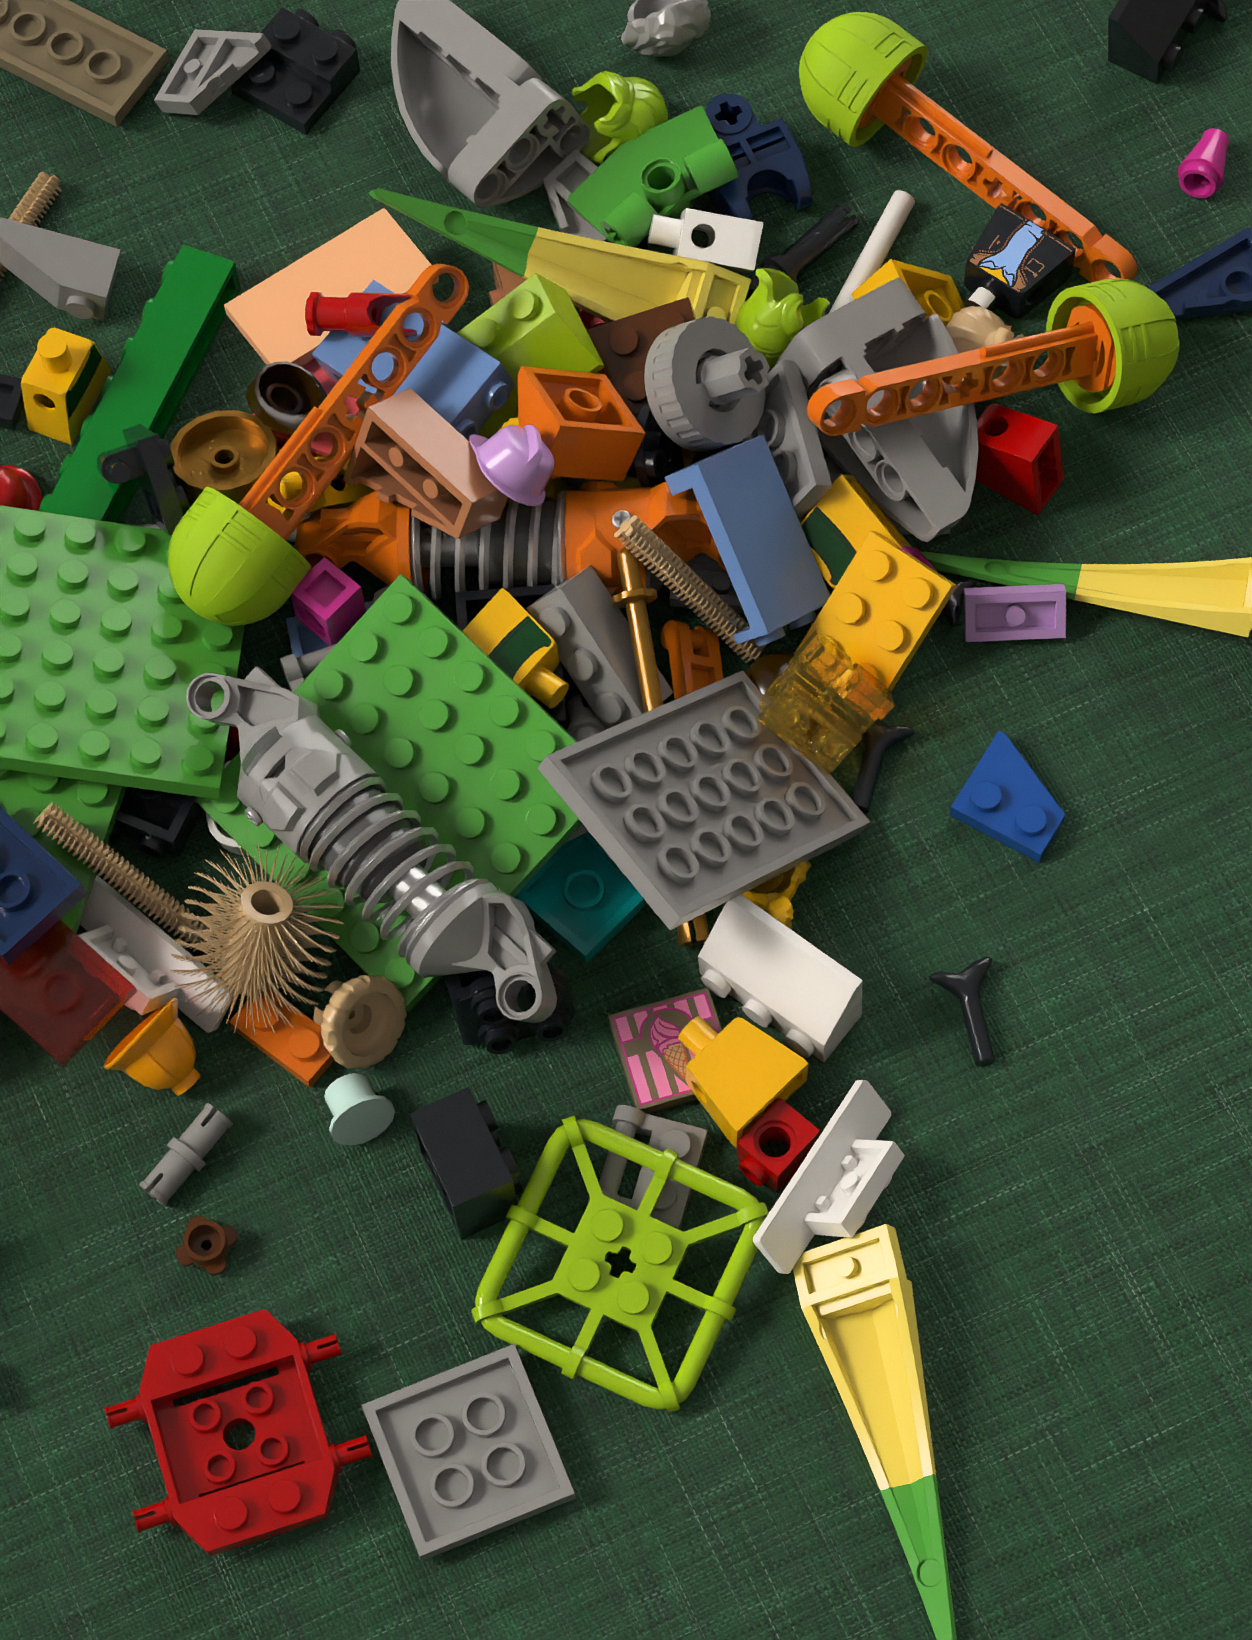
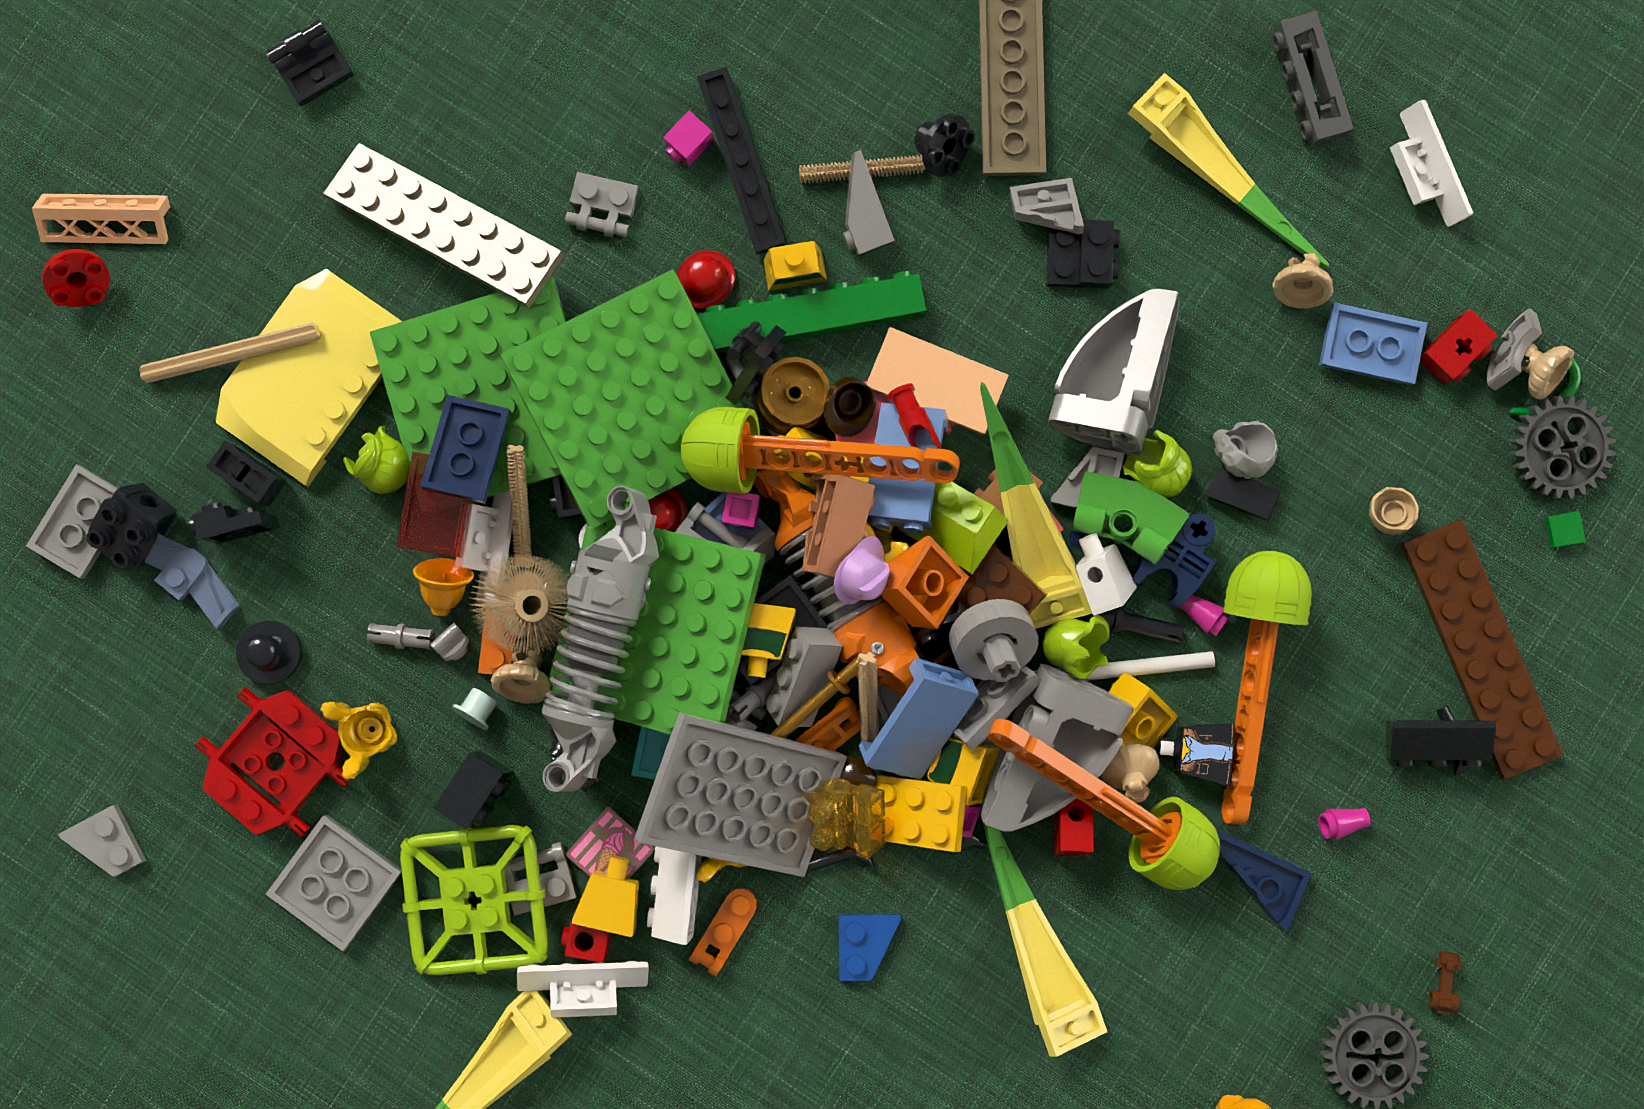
camera: 55 degrees right, 20 degrees up
(43, 137) = (944, 144): none -> black plate
(79, 1352) = (268, 652): none -> black plate
(202, 1230) = (355, 685): reddish brown plate -> none
(243, 1090) = (451, 643): none -> light grey plate
(260, 1280) = (356, 734): none -> yellow hair
(716, 55) = (1242, 493): none -> black slope
(842, 172) = (1206, 614): none -> dark pink cone
(880, 962) = (725, 929): none -> orange plate
(966, 989) = (739, 985): black piece -> none
(1014, 613) = (977, 883): lavender plate -> none

